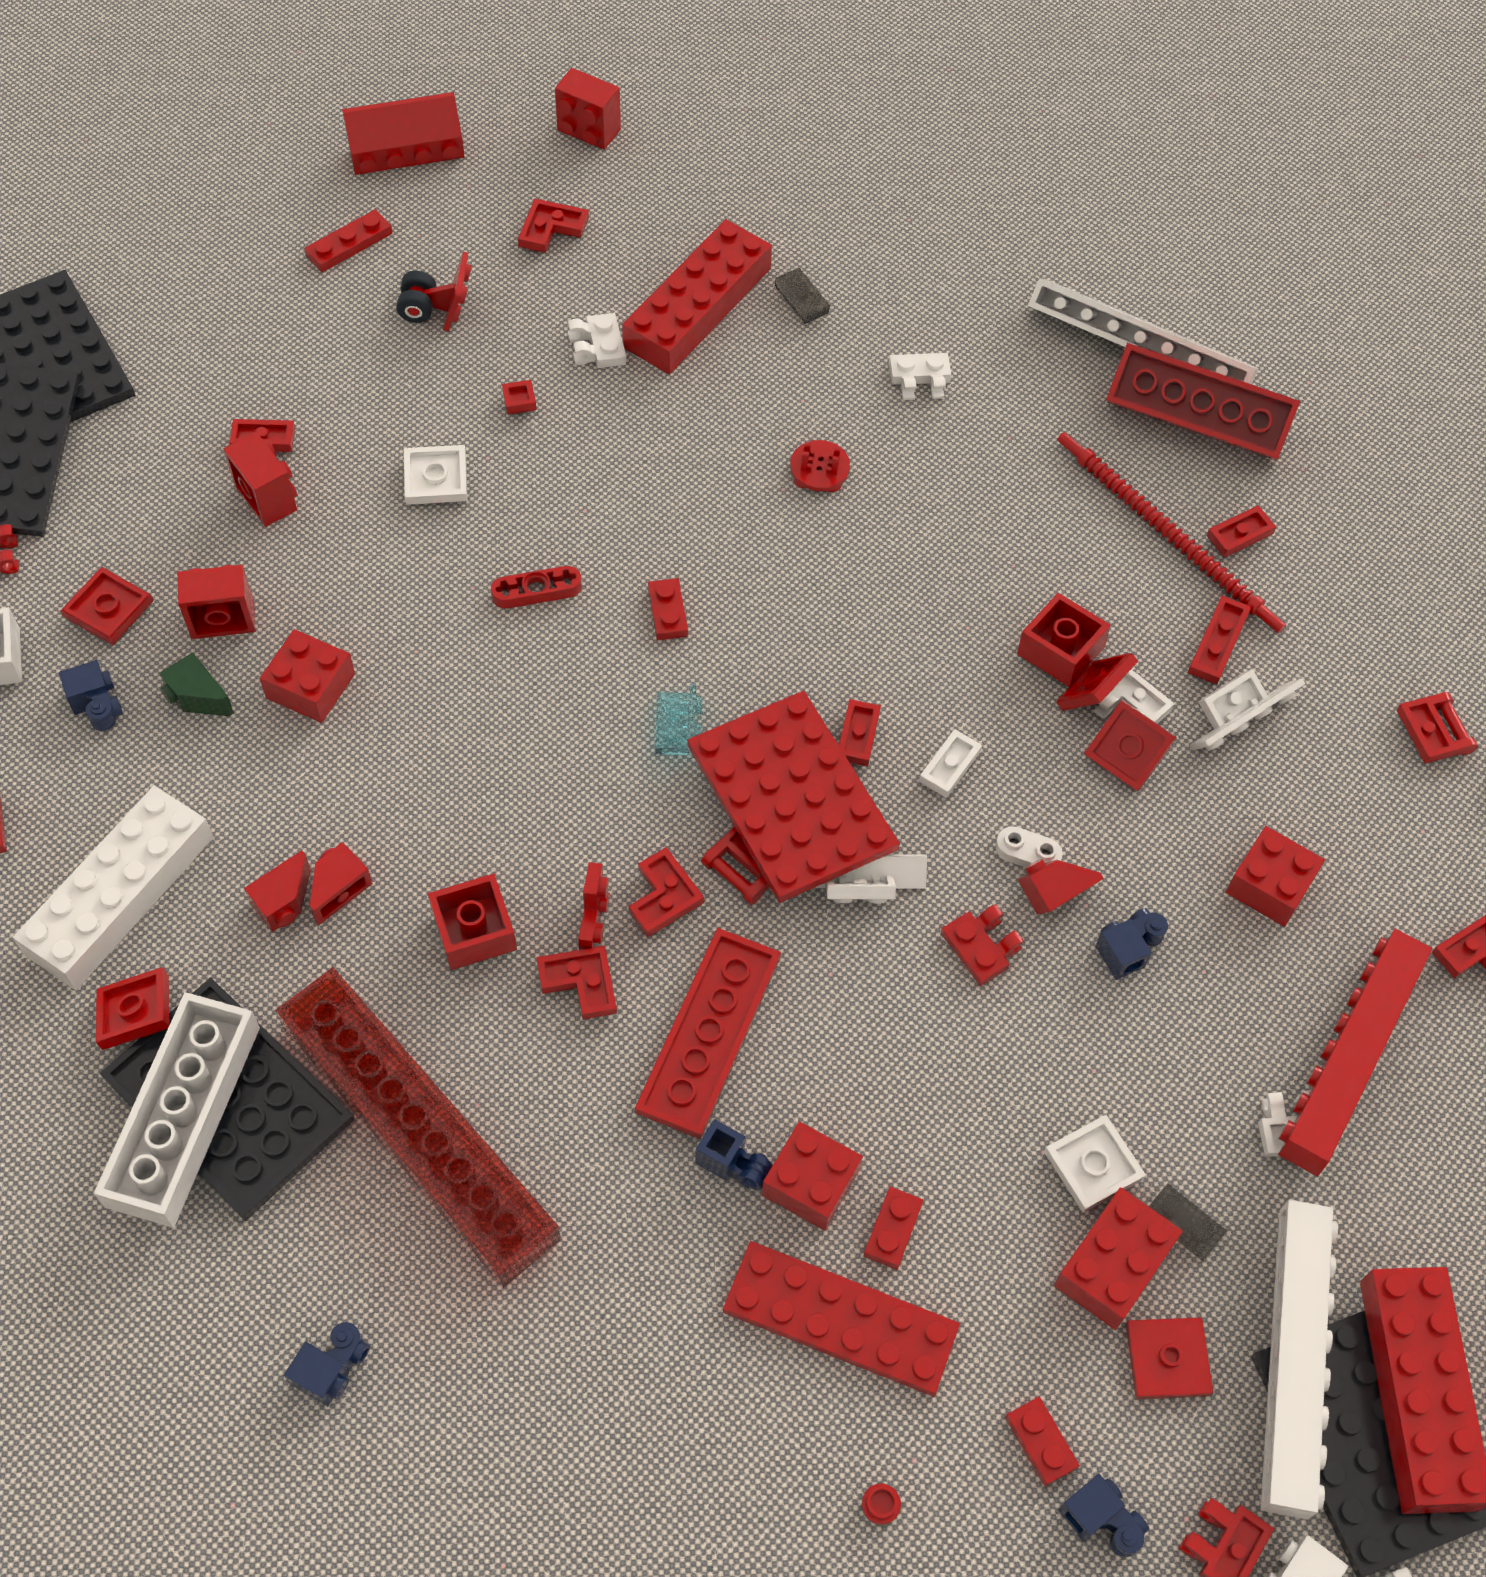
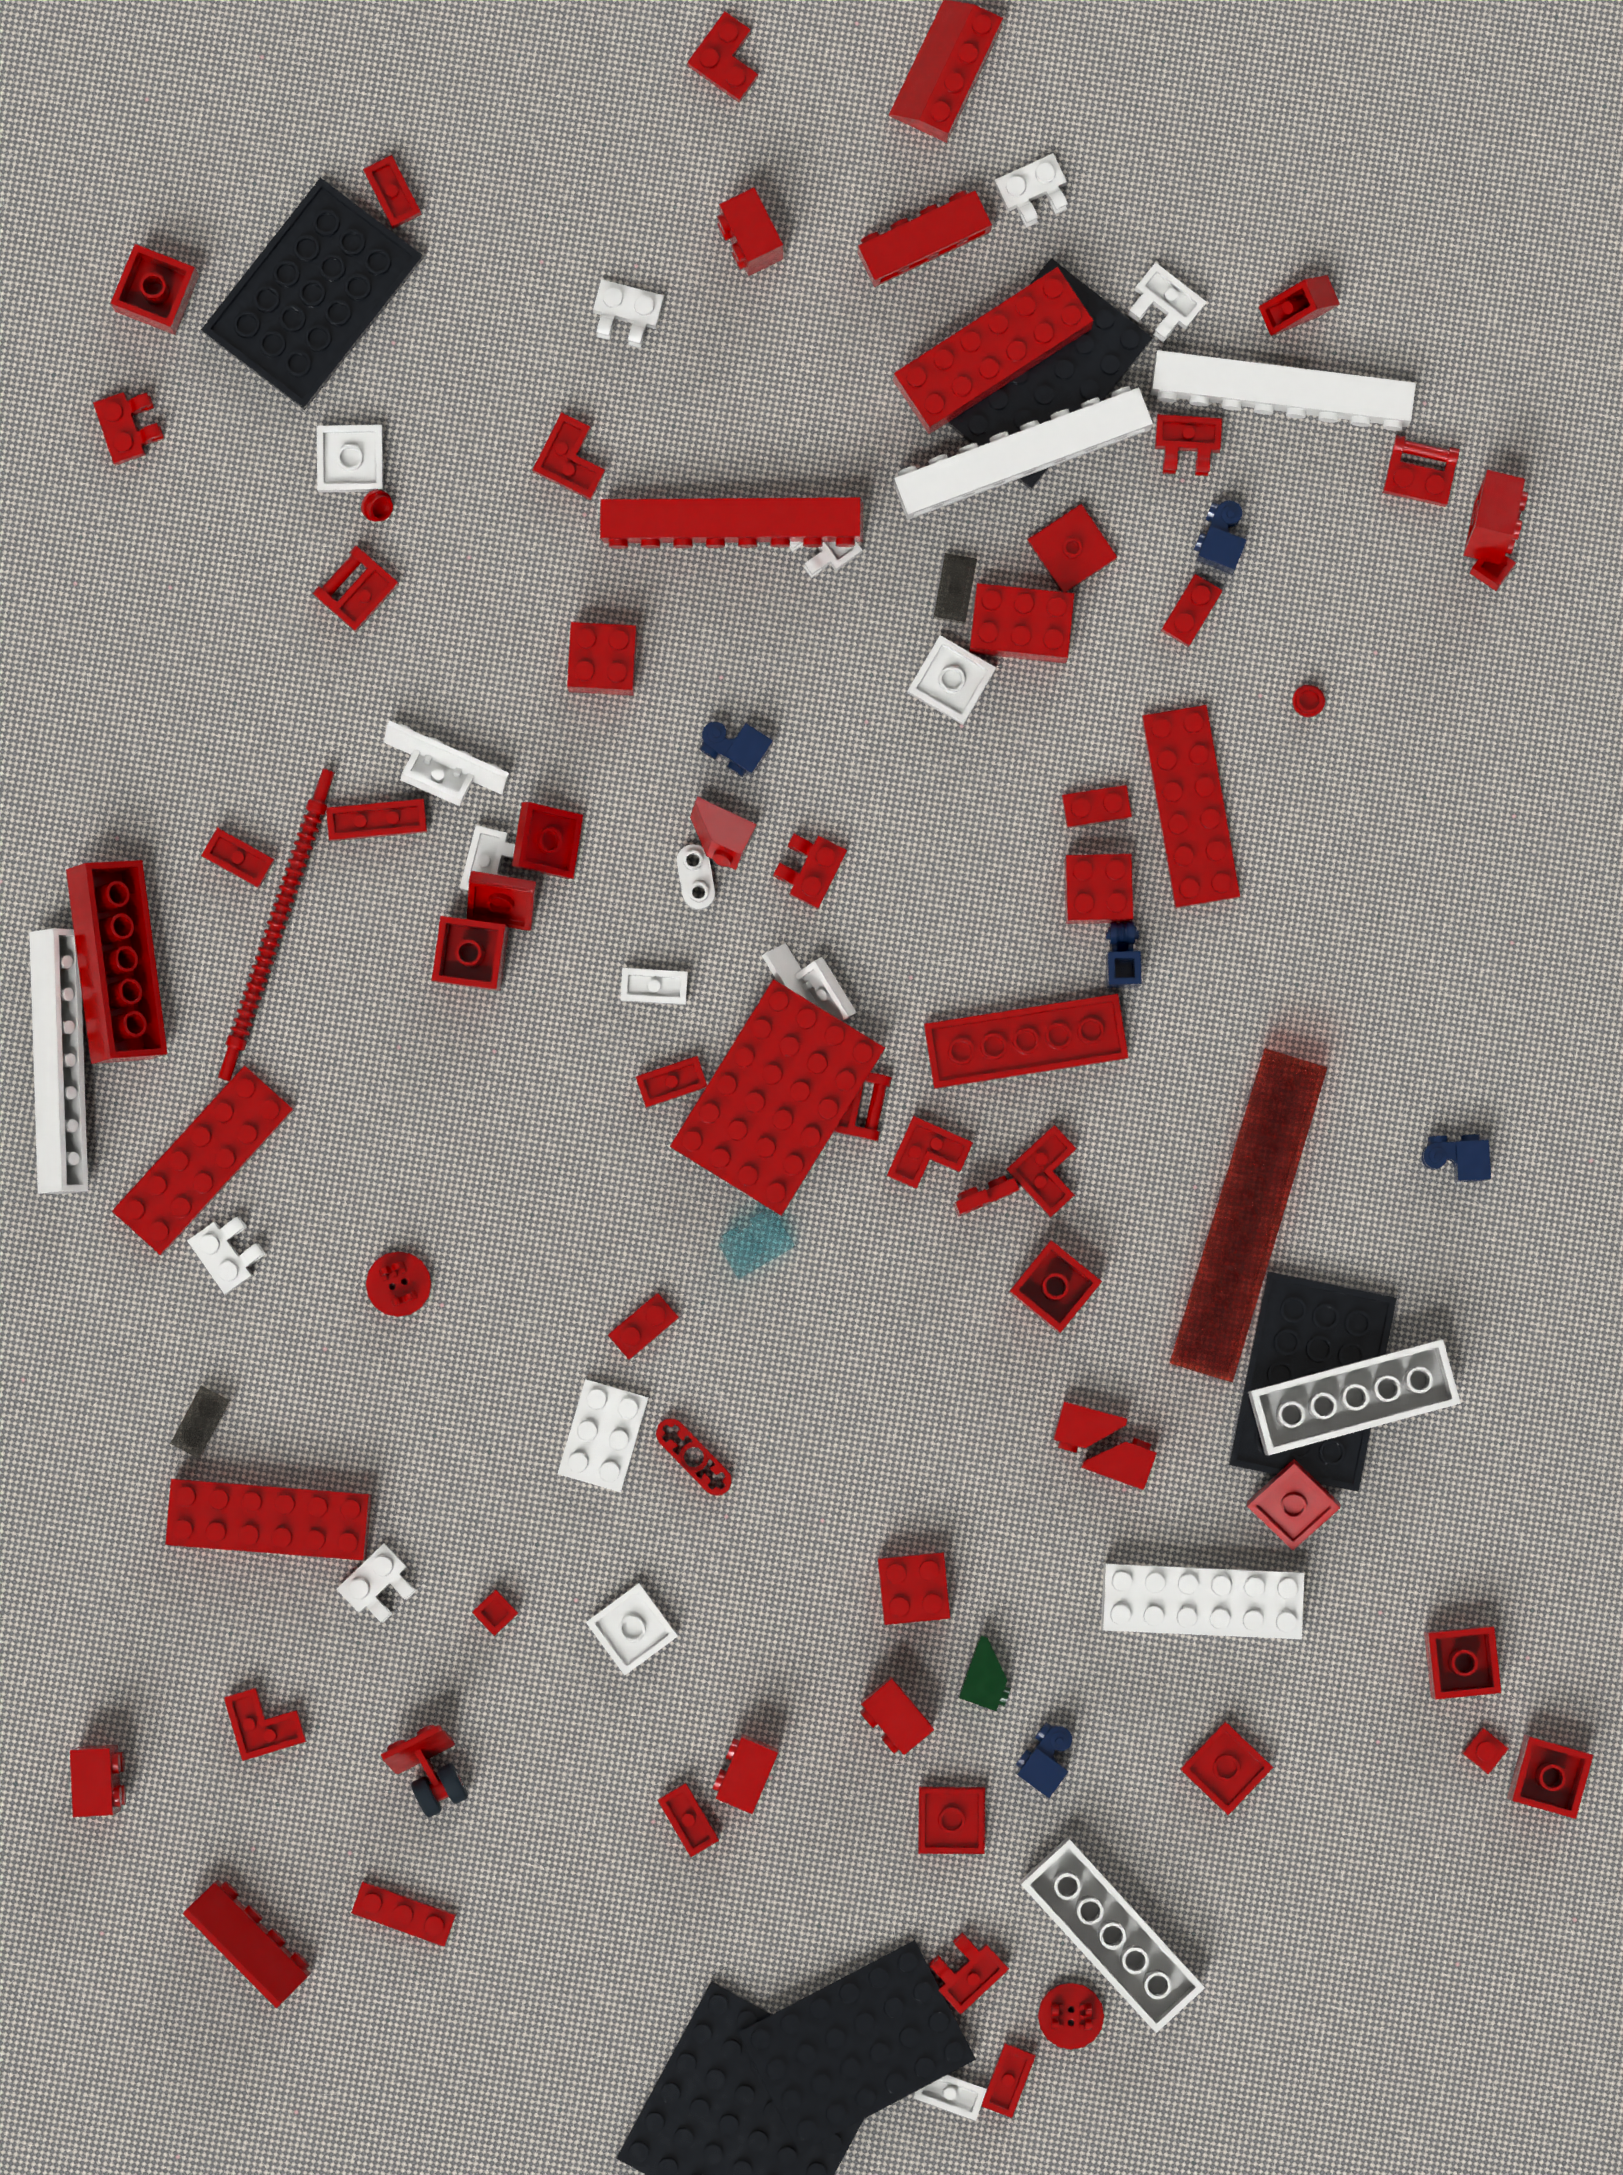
camera: 120 degrees left, 25 degrees up
(600, 537) = (603, 1435): none -> white plate
(1005, 397) = (202, 1160): none -> red plate

